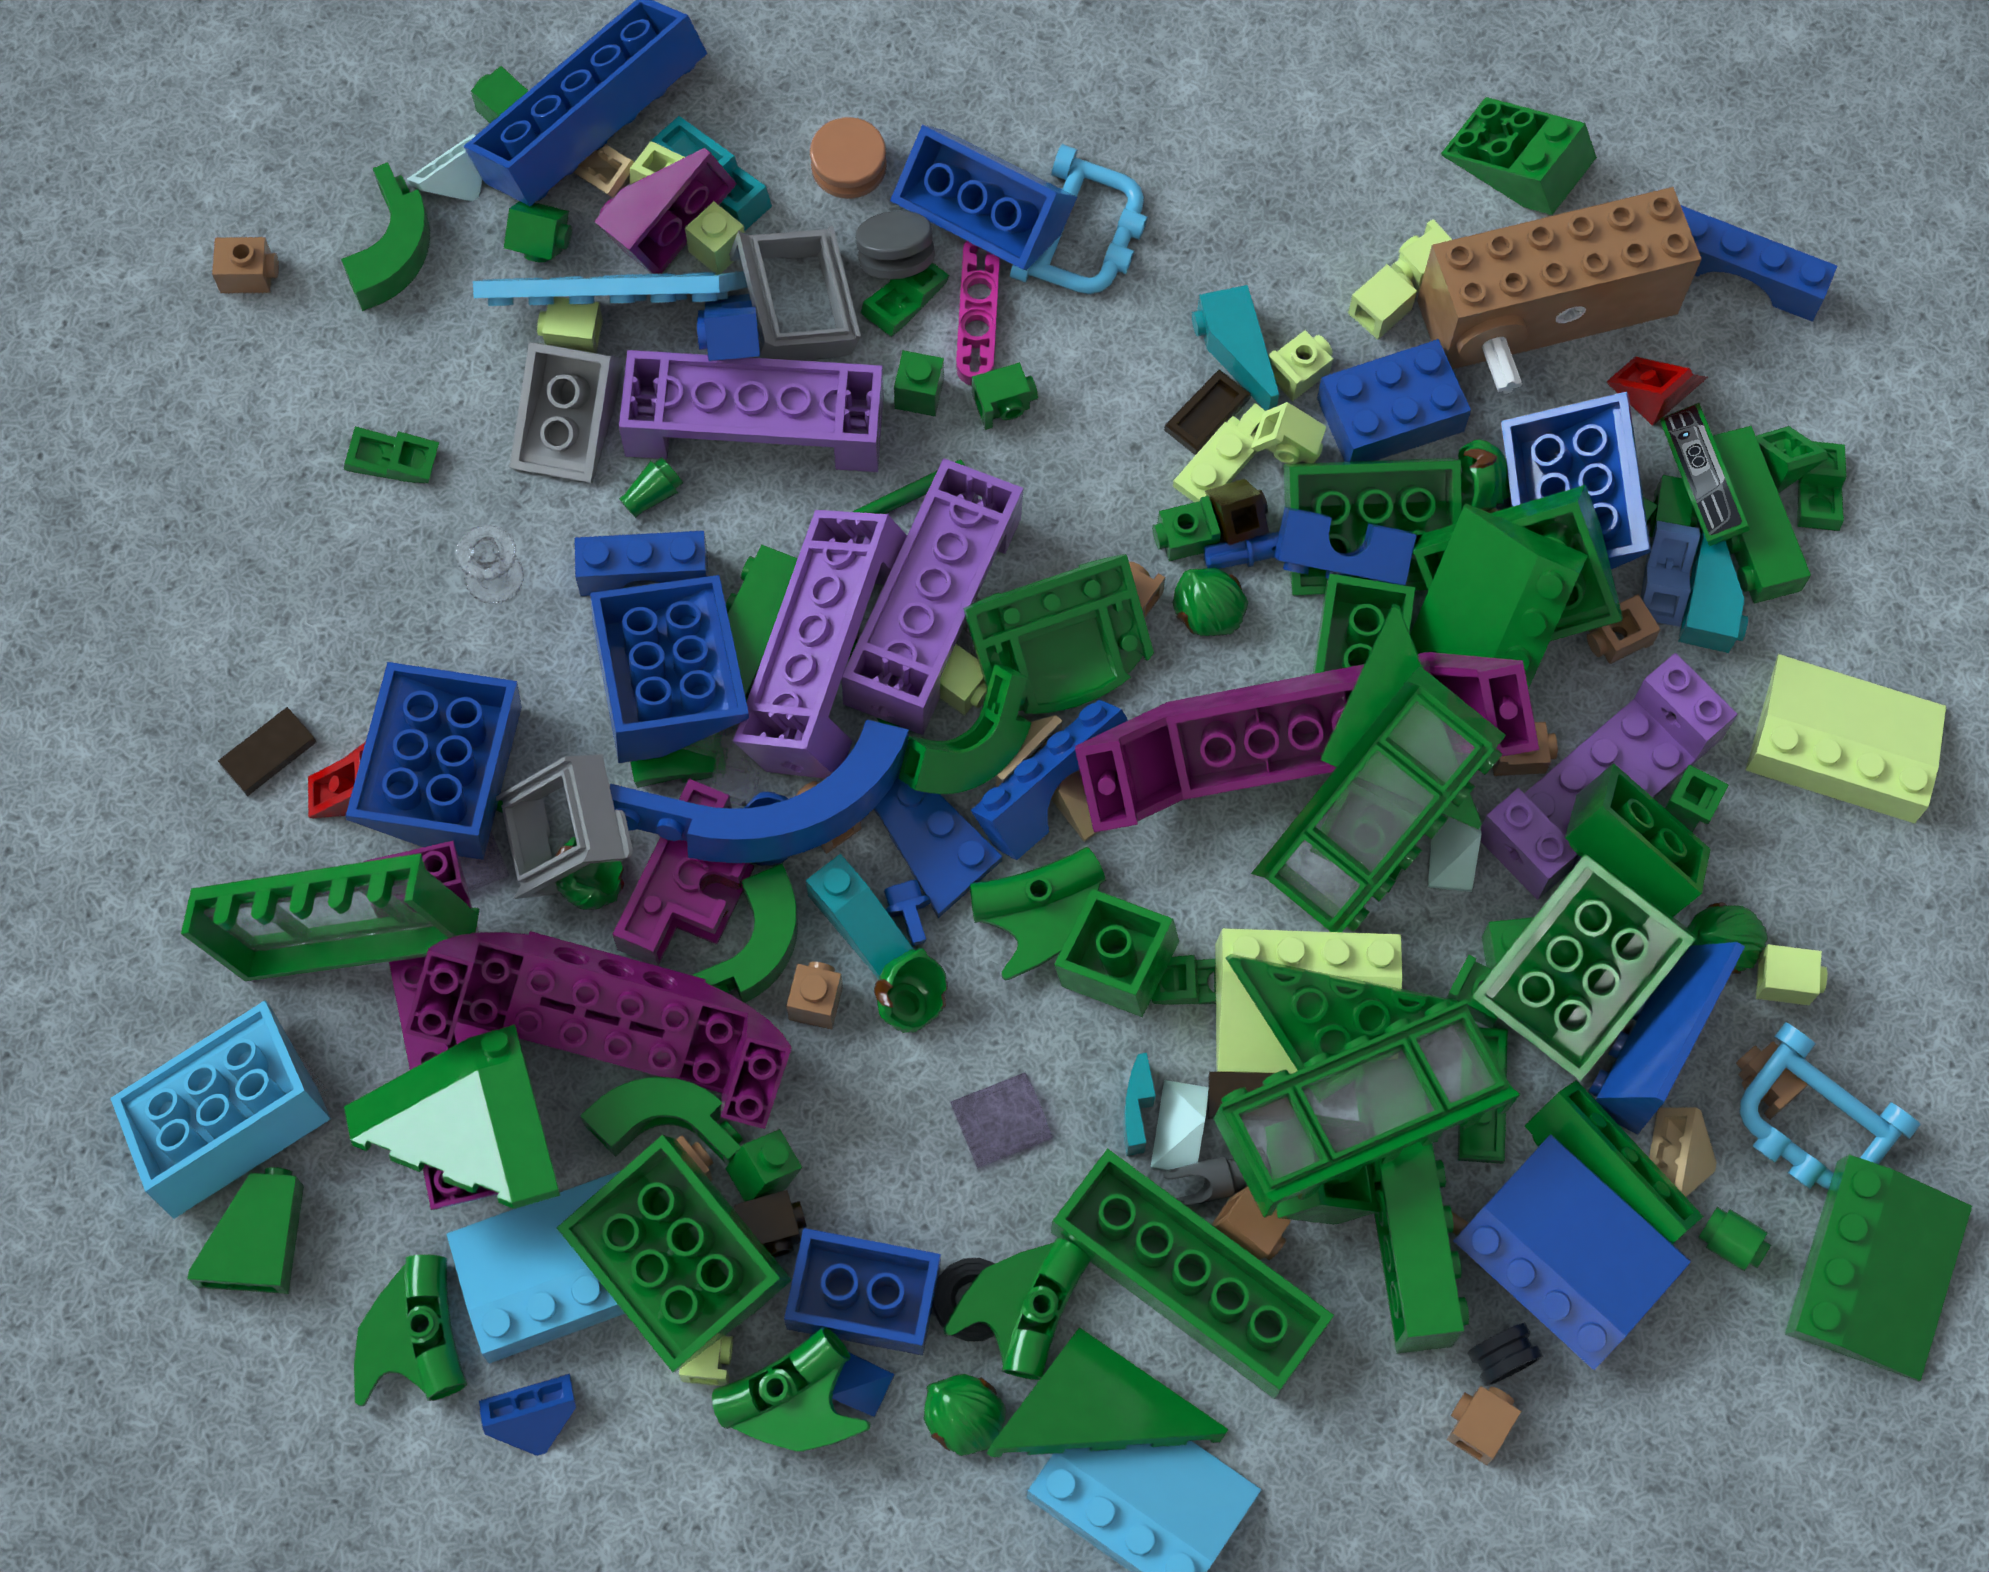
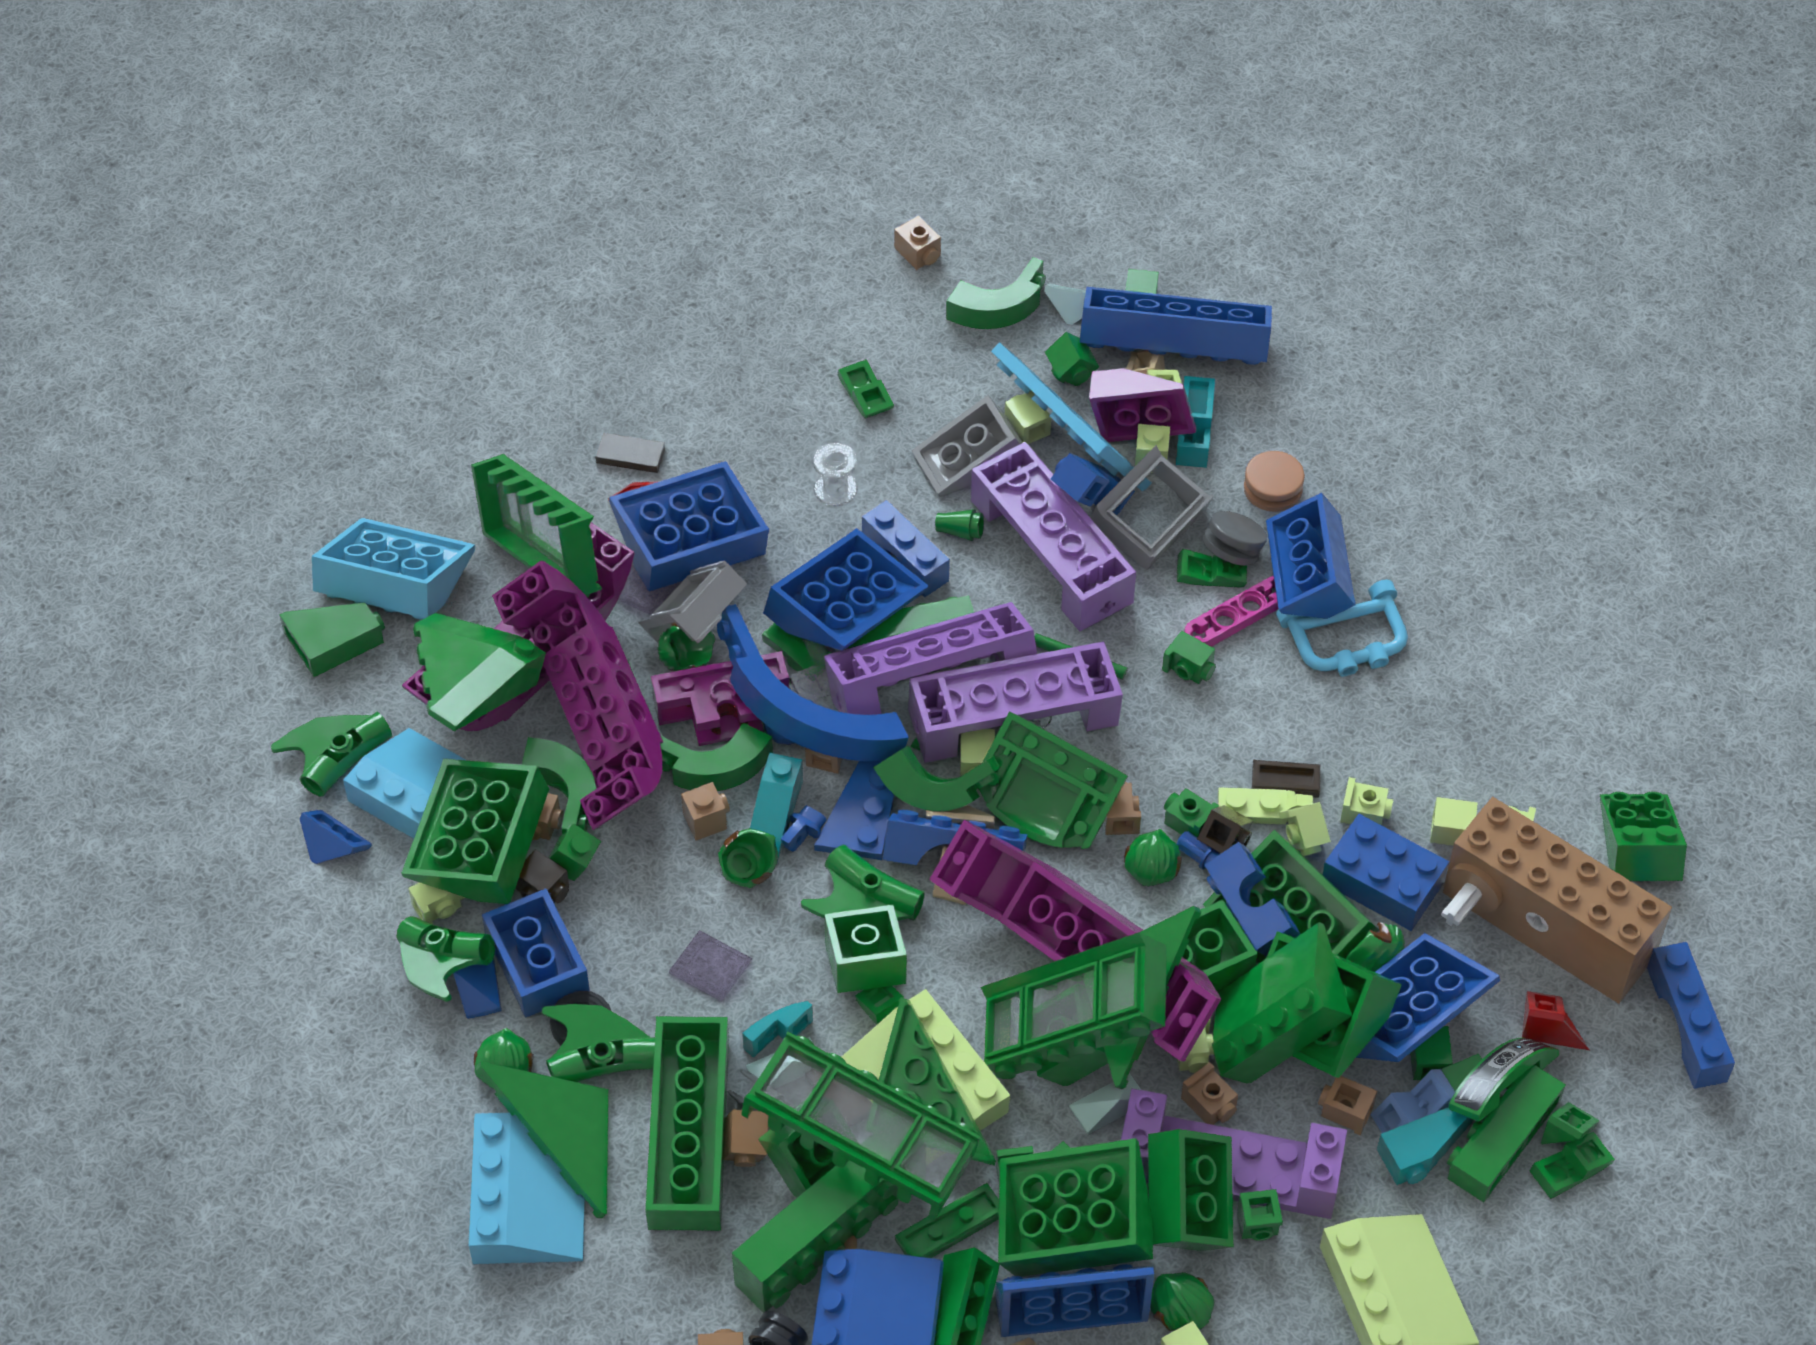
camera: 55 degrees right, 15 degrees down
(919, 383) = (1154, 610): green brick -> none
(1236, 341) = (1353, 752): teal slope -> none

